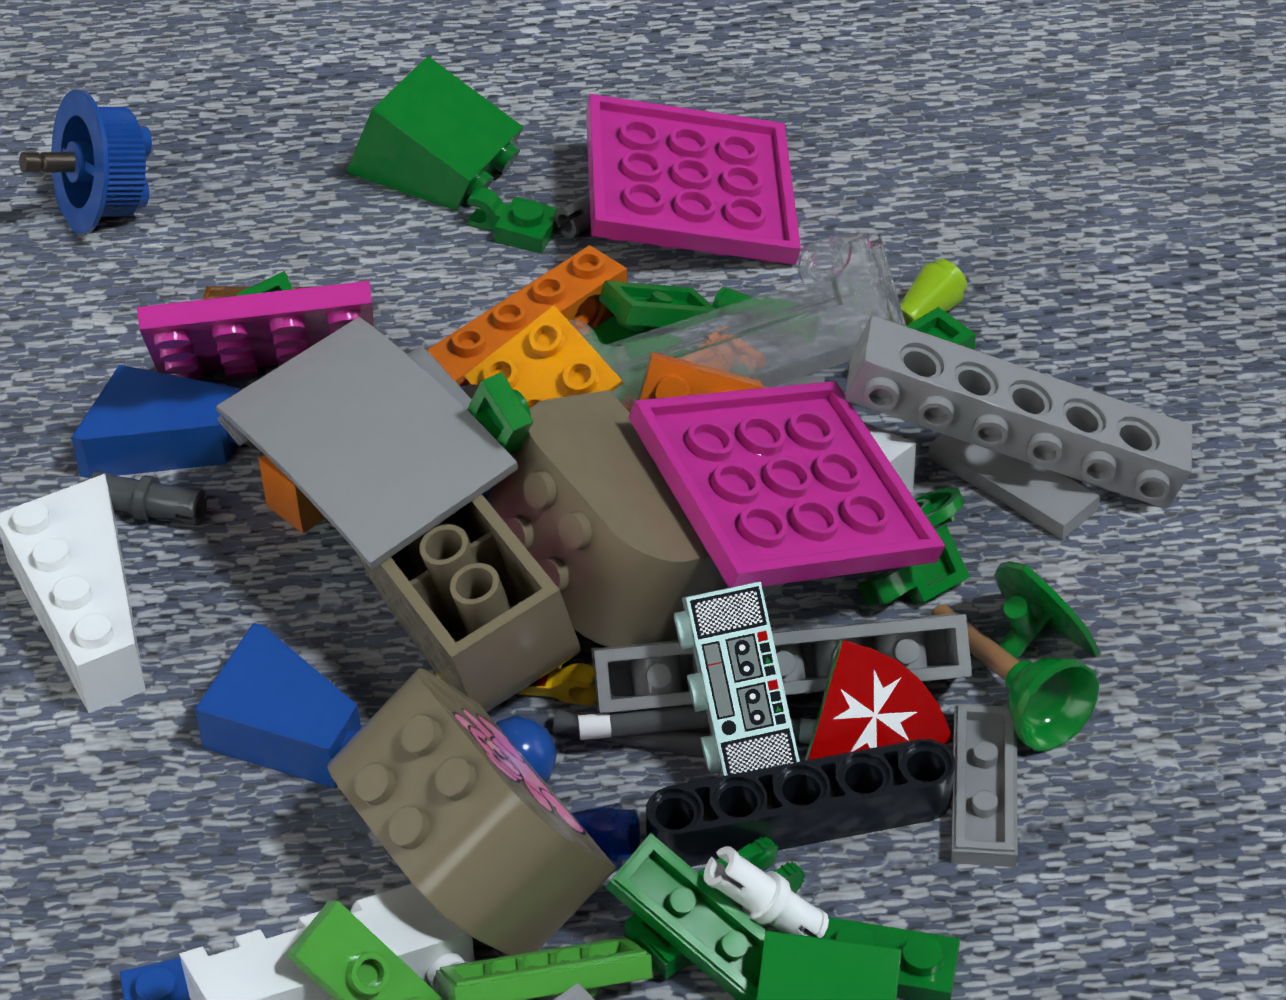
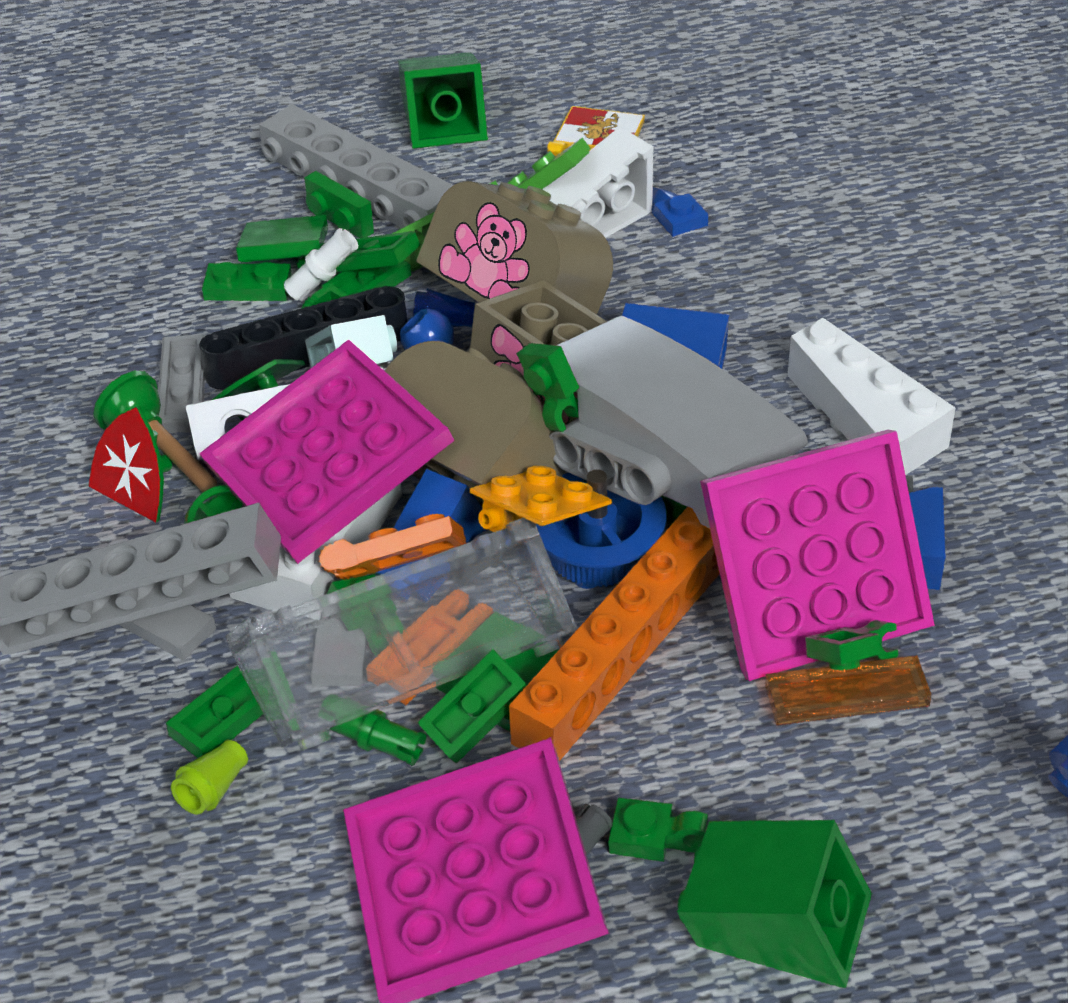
camera: 170 degrees right, 0 degrees up
(623, 772) = (426, 326): none -> blue piece

